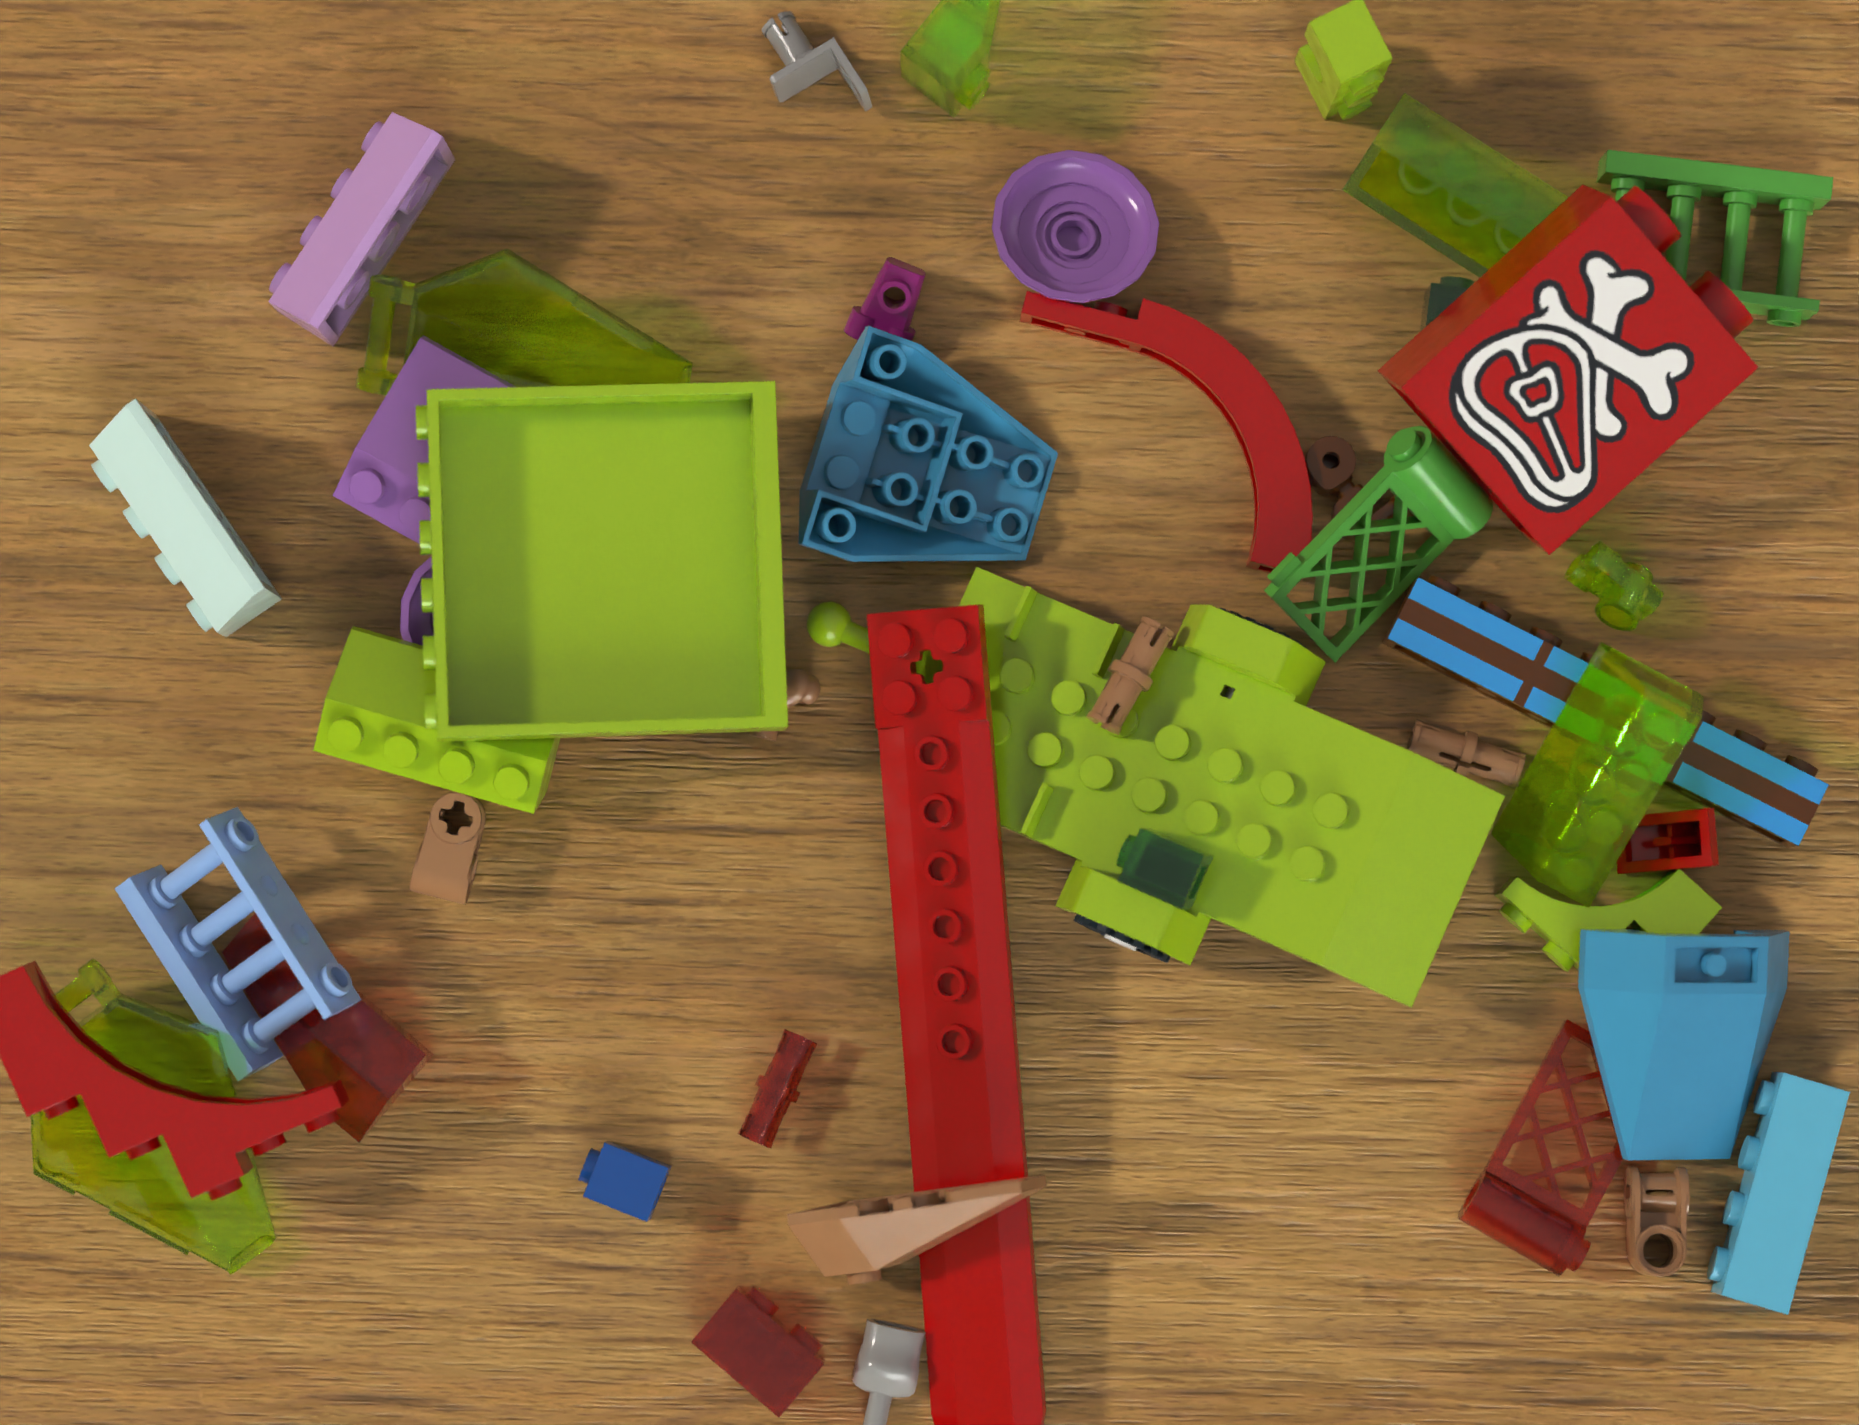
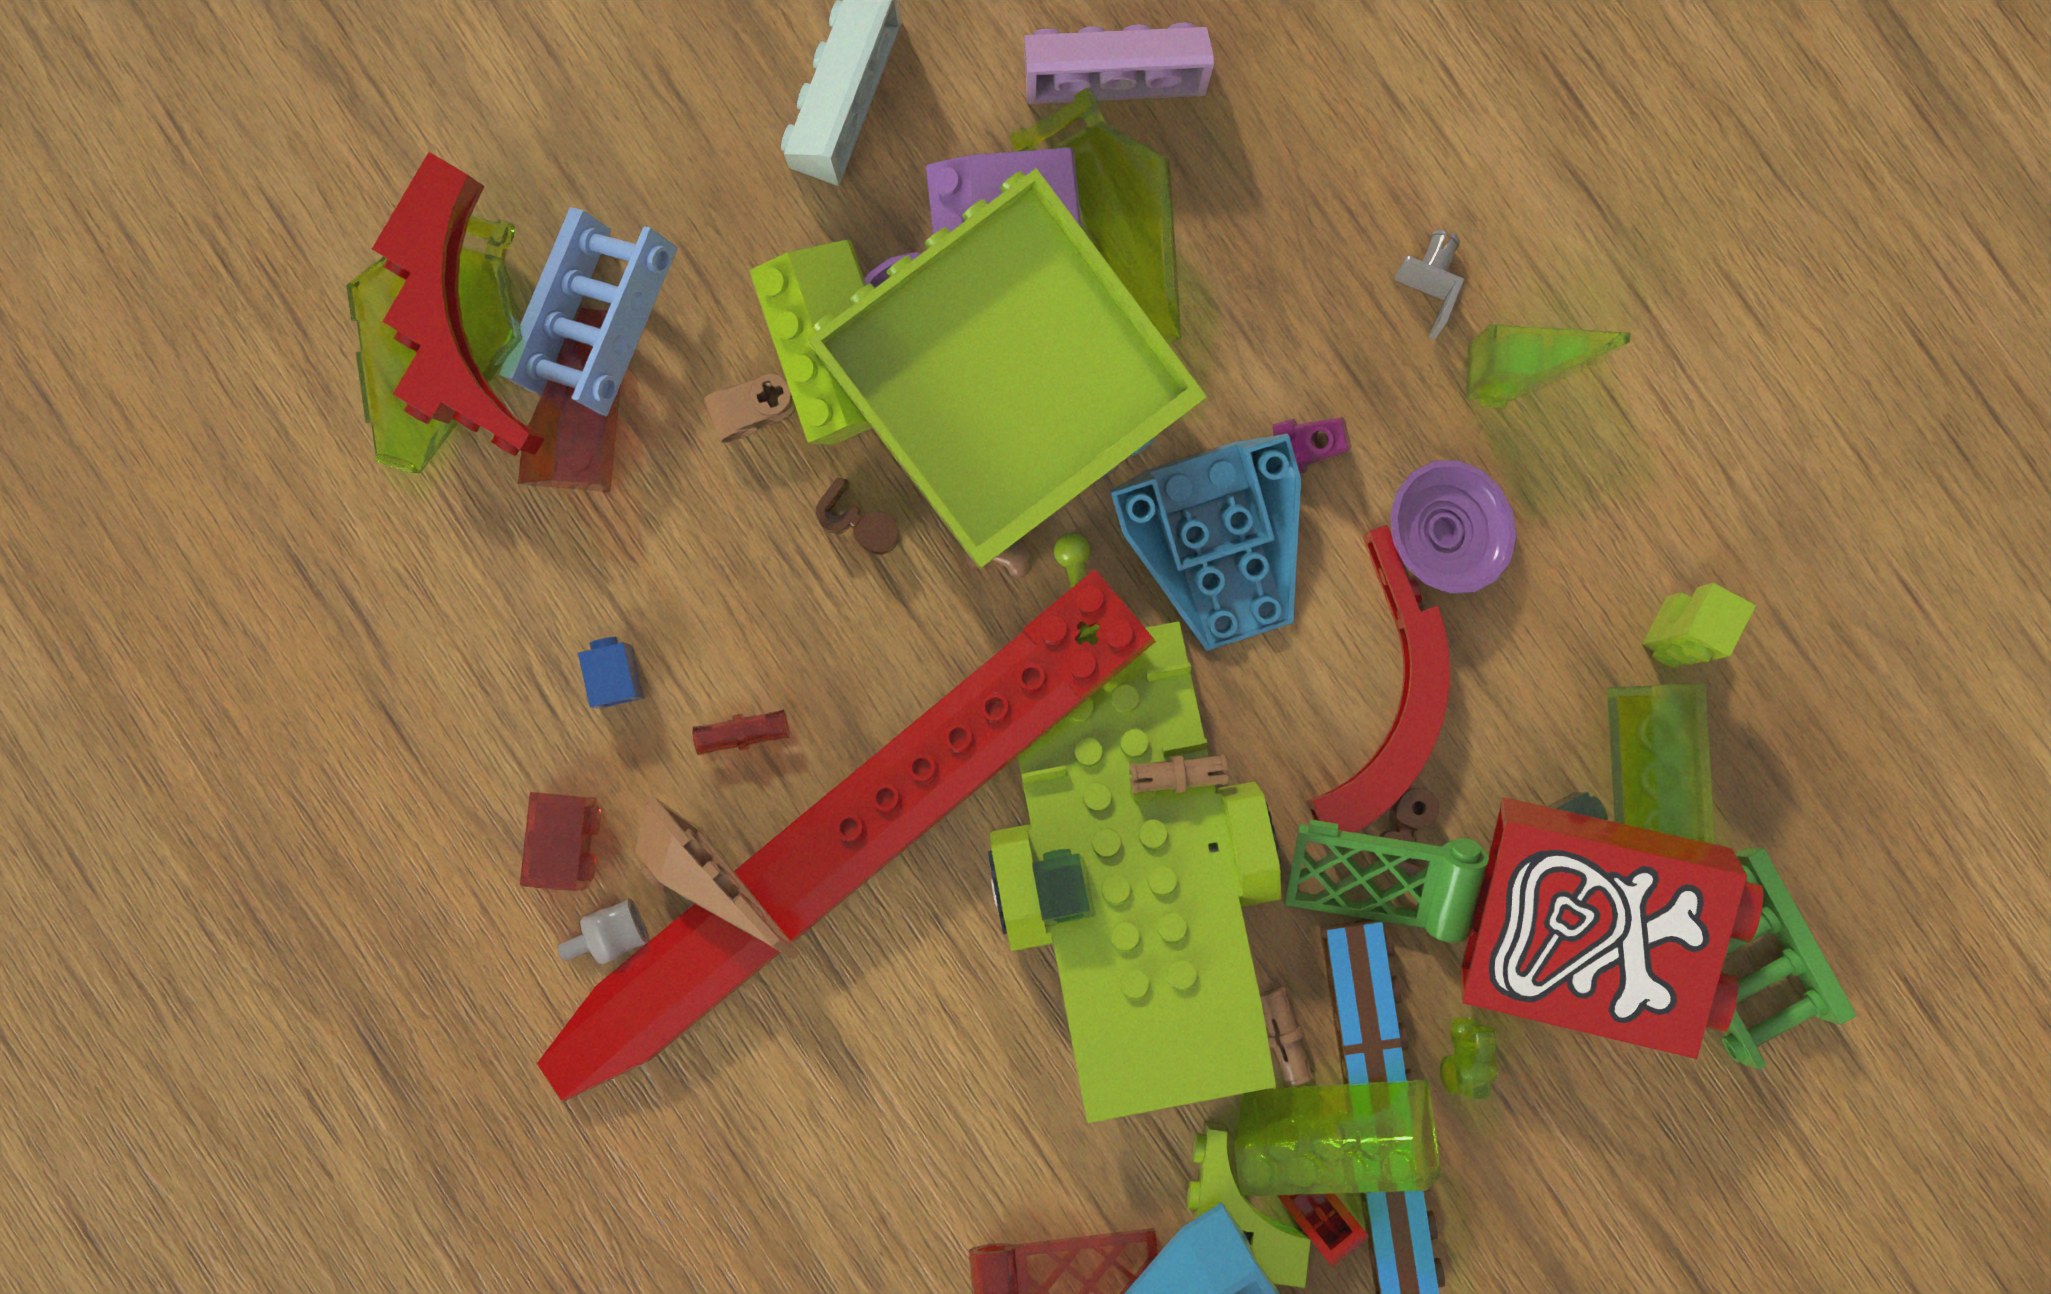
camera: 55 degrees right, 0 degrees up
(668, 812) = (874, 532): none -> reddish brown leg

